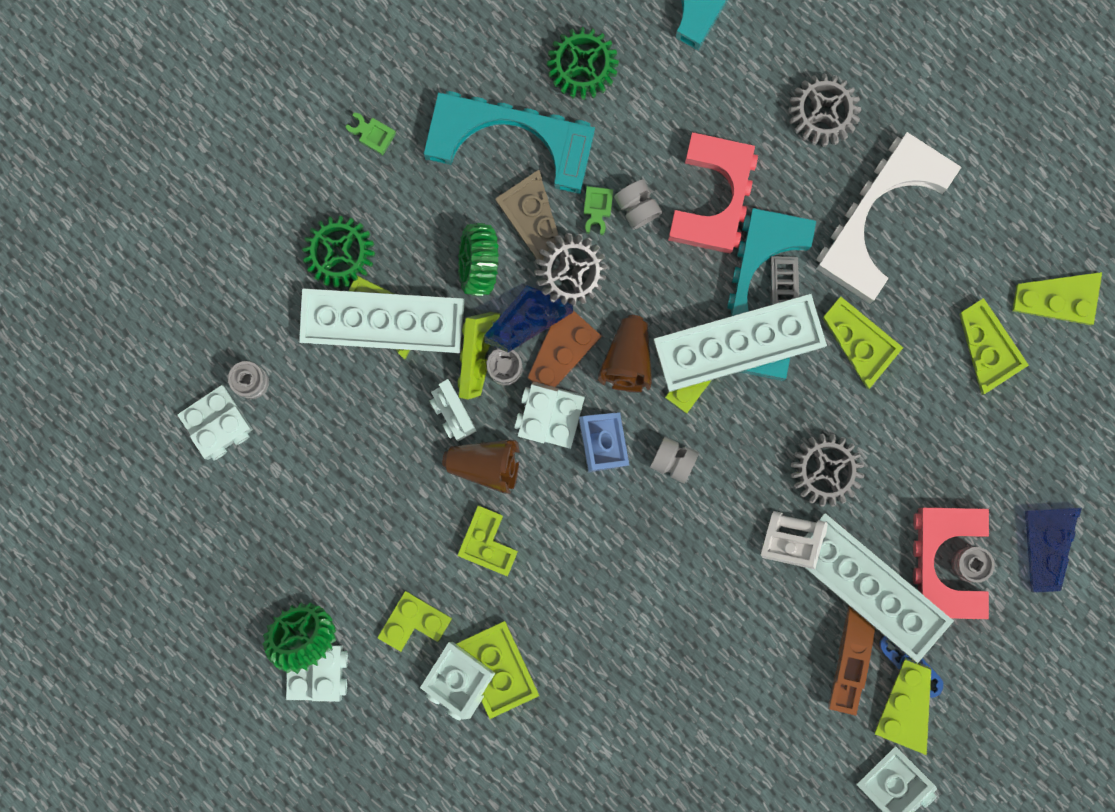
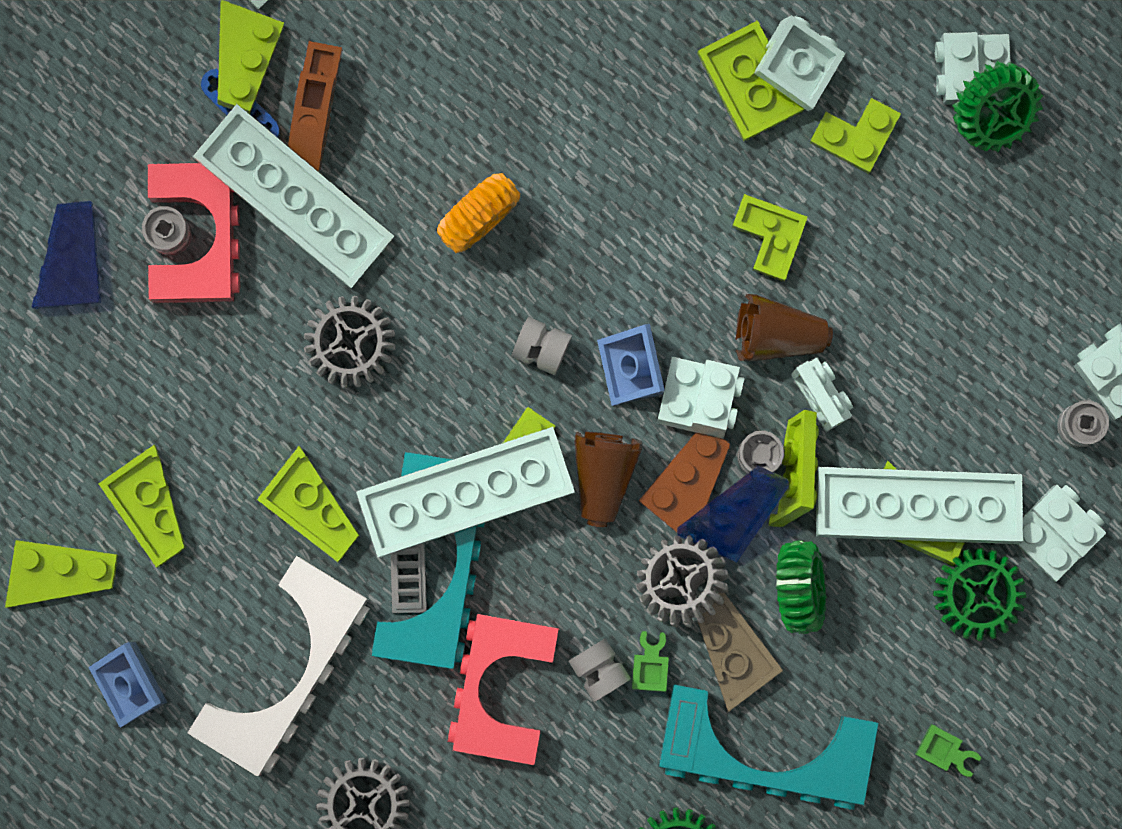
camera: 175 degrees right, 0 degrees up
(272, 298) = (1059, 531): none -> light aqua plate
(722, 568) = (478, 212): none -> light orange gear
(793, 548) = (392, 241): white plate -> none
(1005, 209) = (127, 683): none -> medium blue slope

